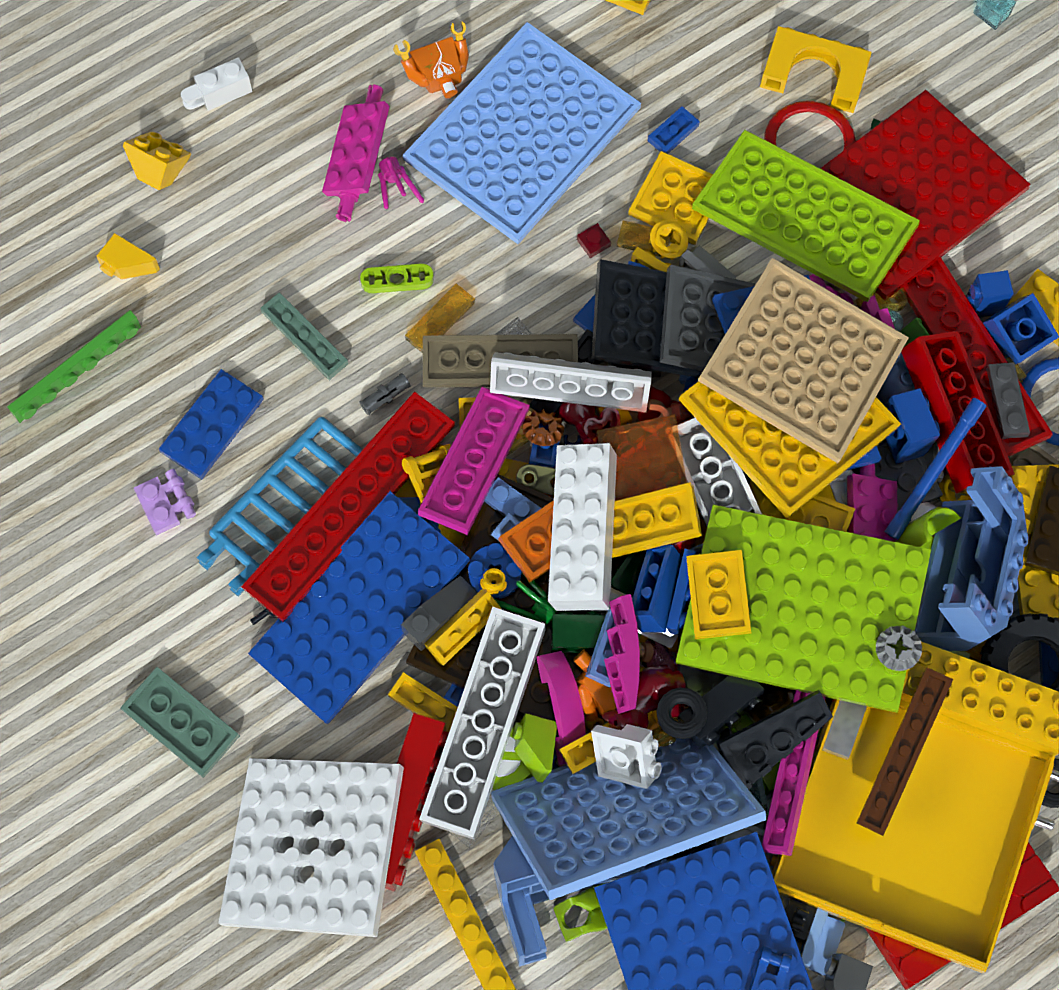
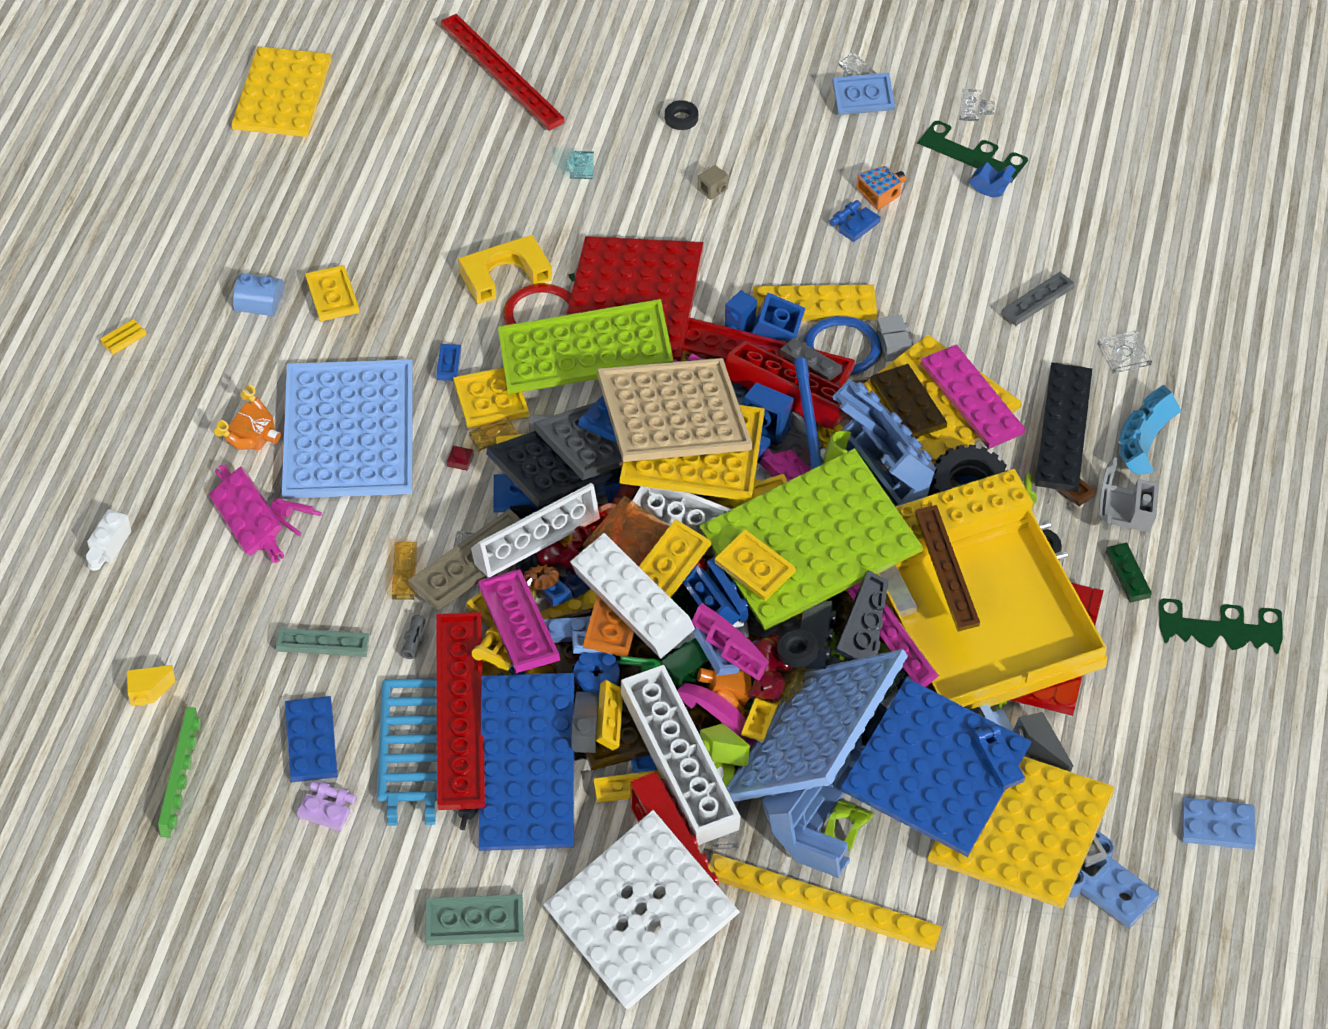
camera: 40 degrees left, 20 degrees down
(155, 159) = (109, 612): yellow slope -> none
(405, 285) = (348, 576): lime beam -> none
(496, 576) = (604, 671): yellow plate -> none
(542, 477) = (571, 603): olive plate -> none
(626, 755) = (787, 698): white plate -> none
(678, 239) = (515, 415): yellow gear -> none
(887, 654) = (887, 518): light grey gear -> none

